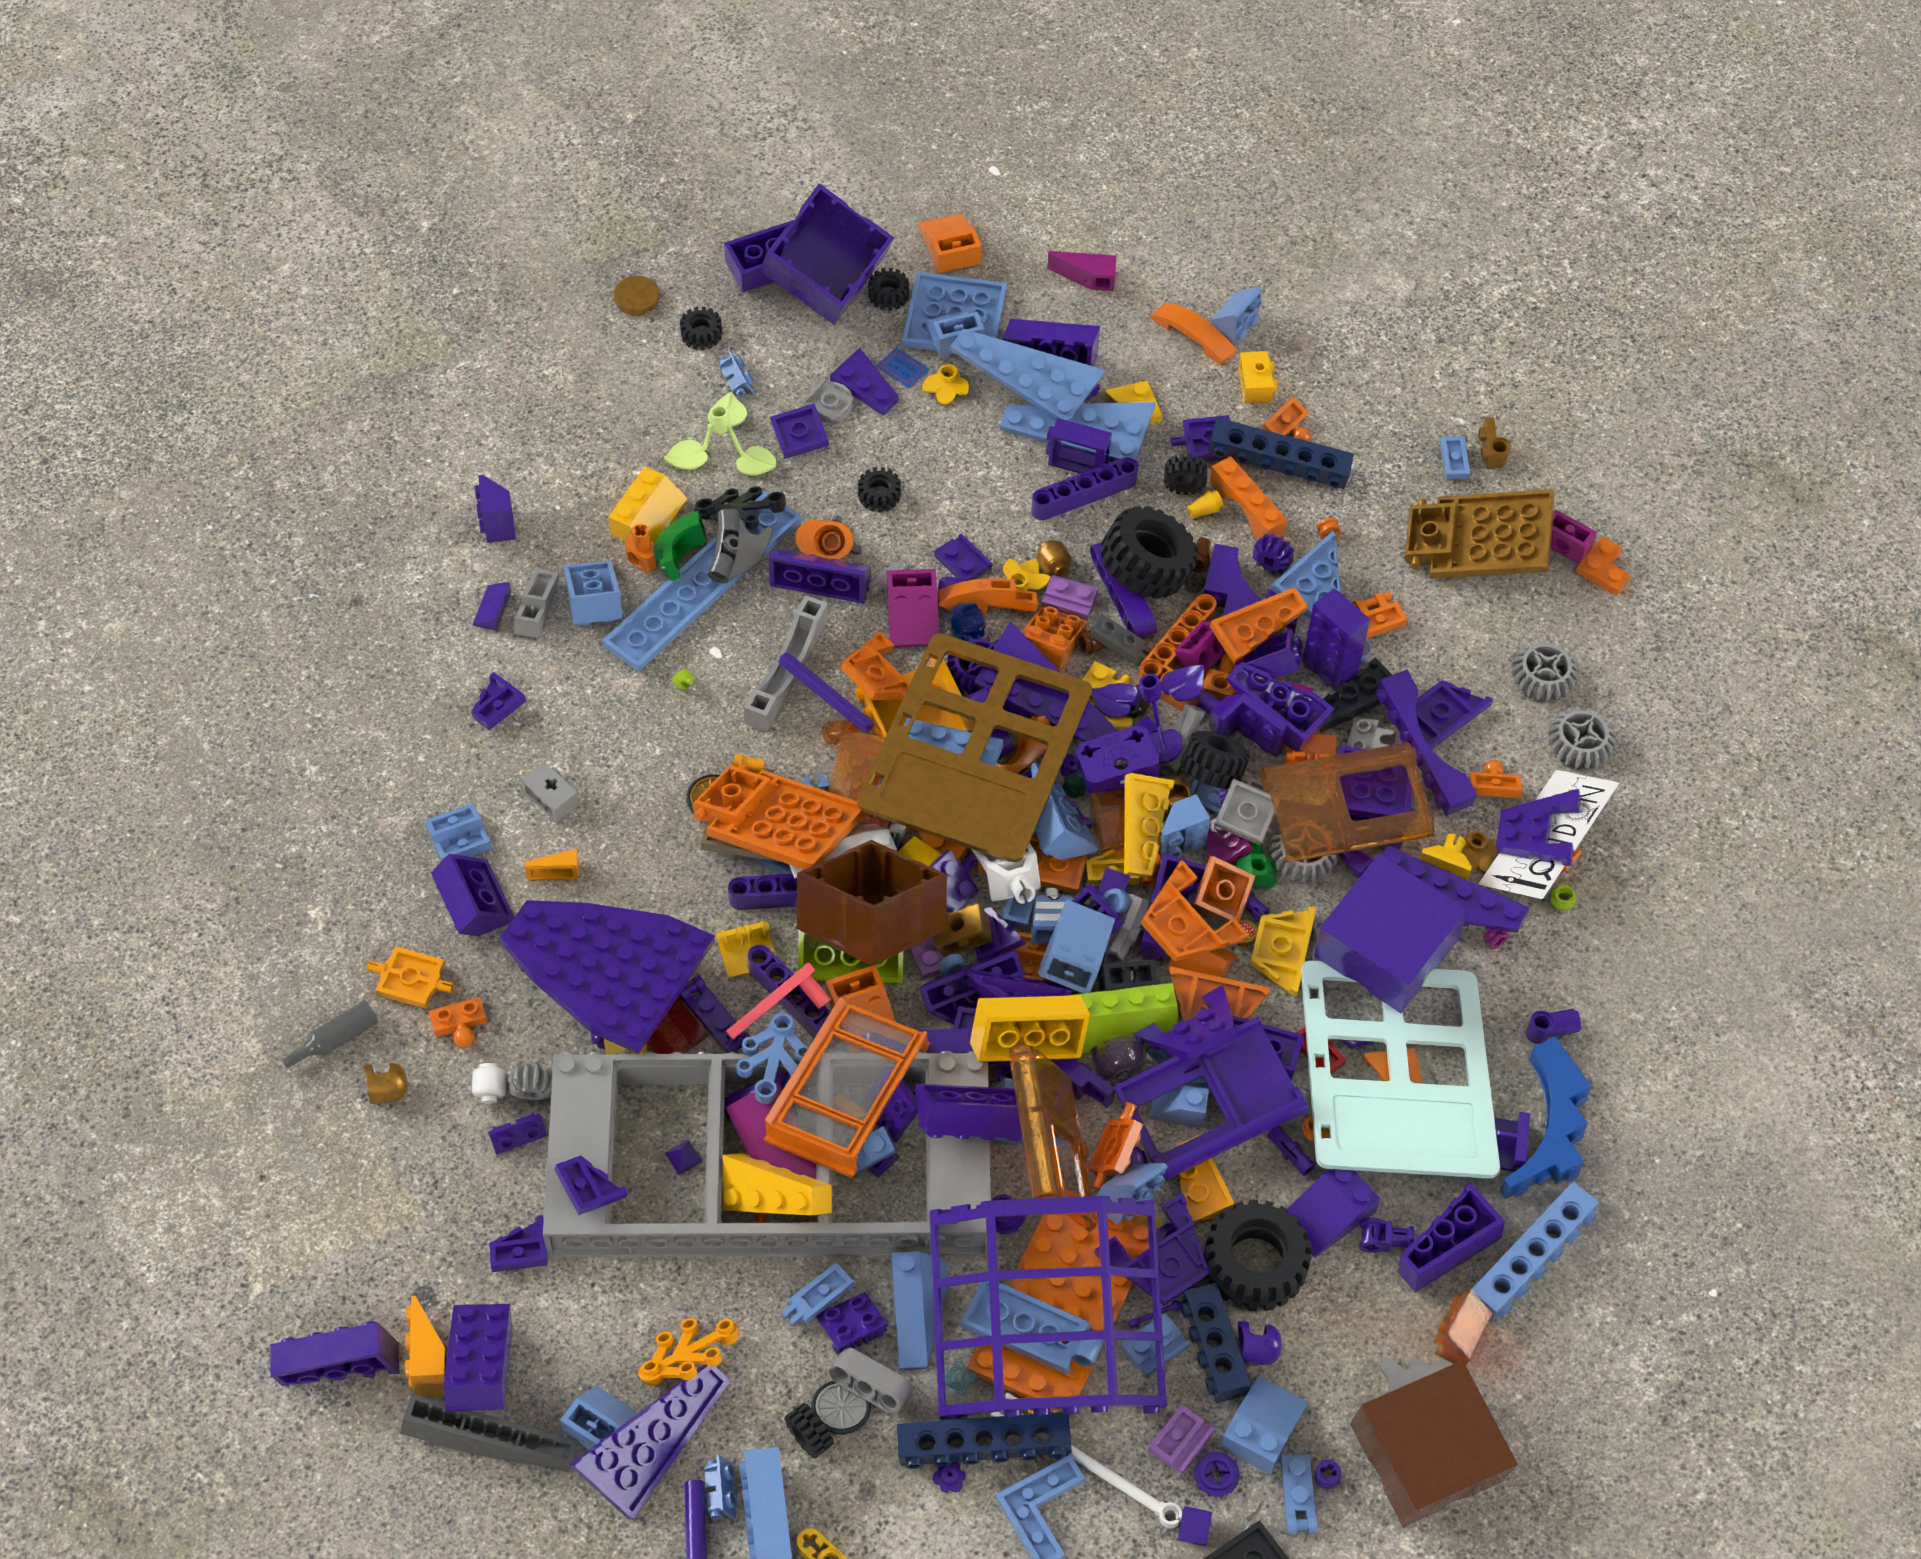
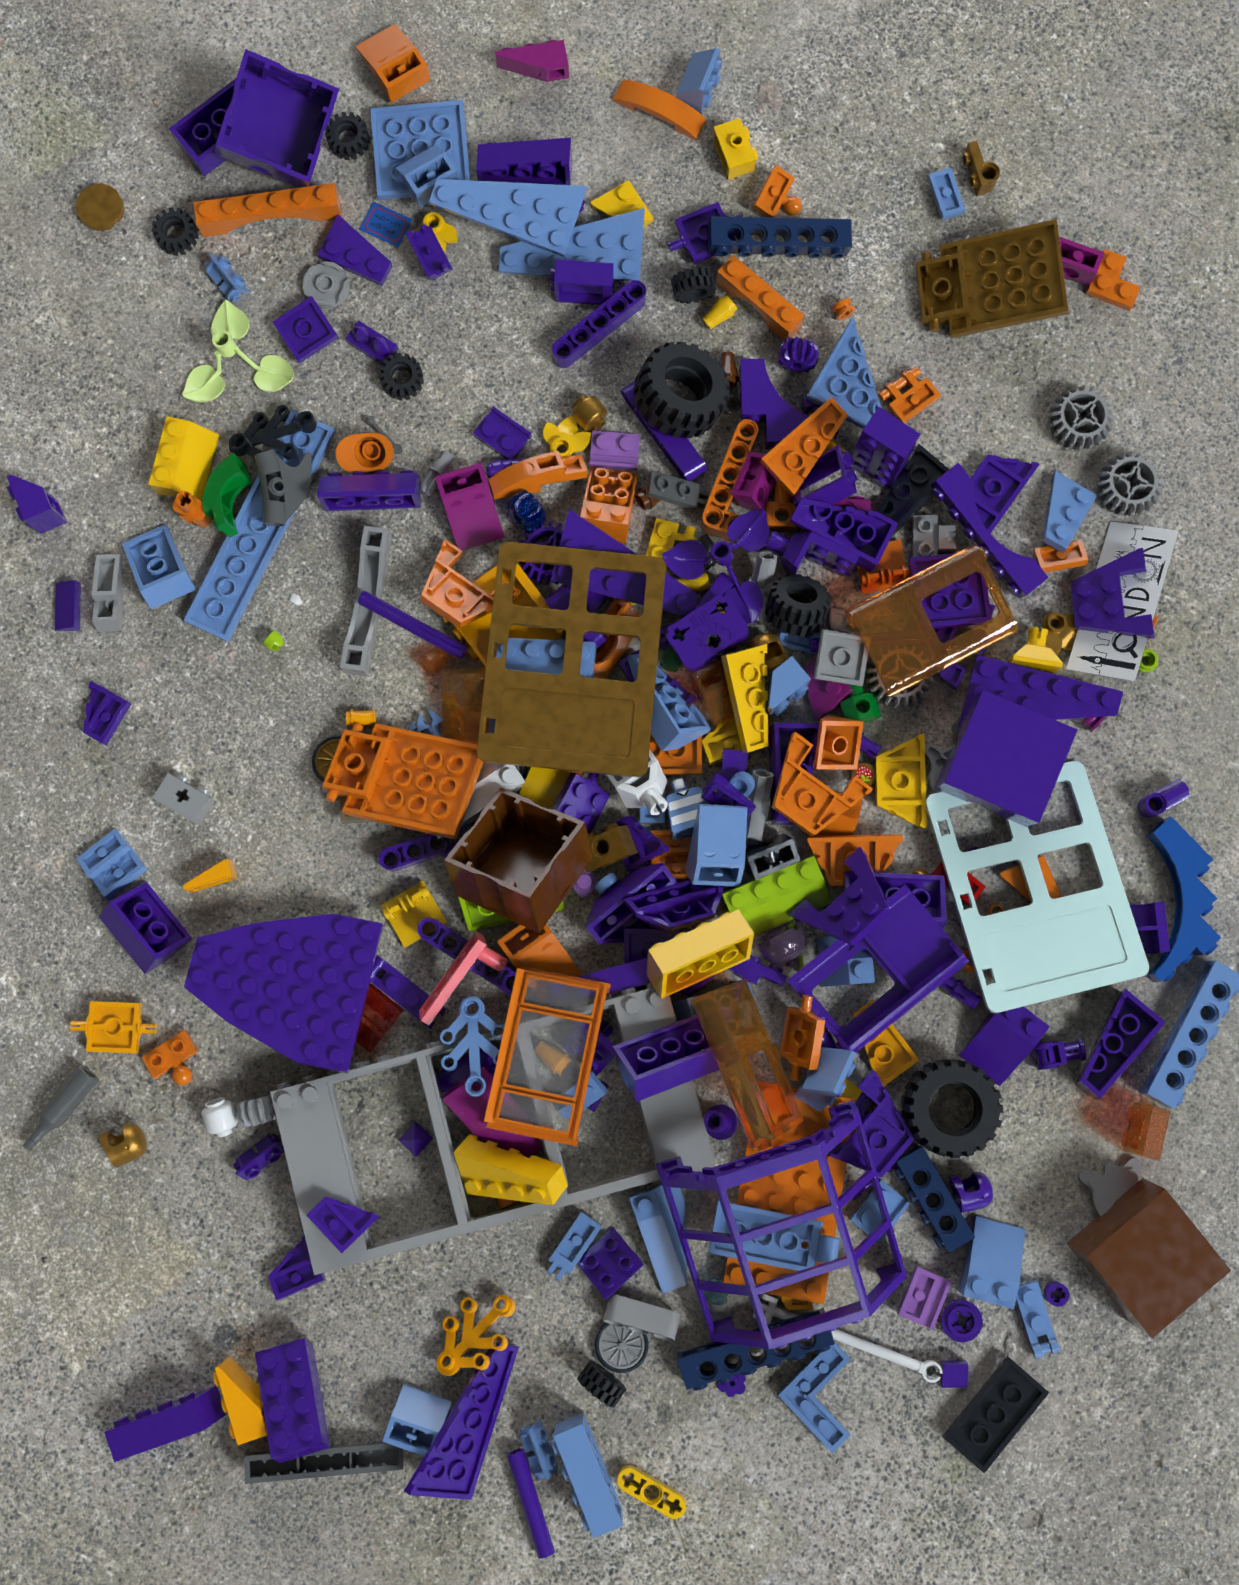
camera: 10 degrees left, 25 degrees up
(751, 323) = (229, 213): none -> orange arch
(857, 455) = (371, 343): none -> dark purple tile
(938, 394) = (429, 252): none -> dark purple hinge
(1511, 747) = (1066, 511): none -> medium blue wing

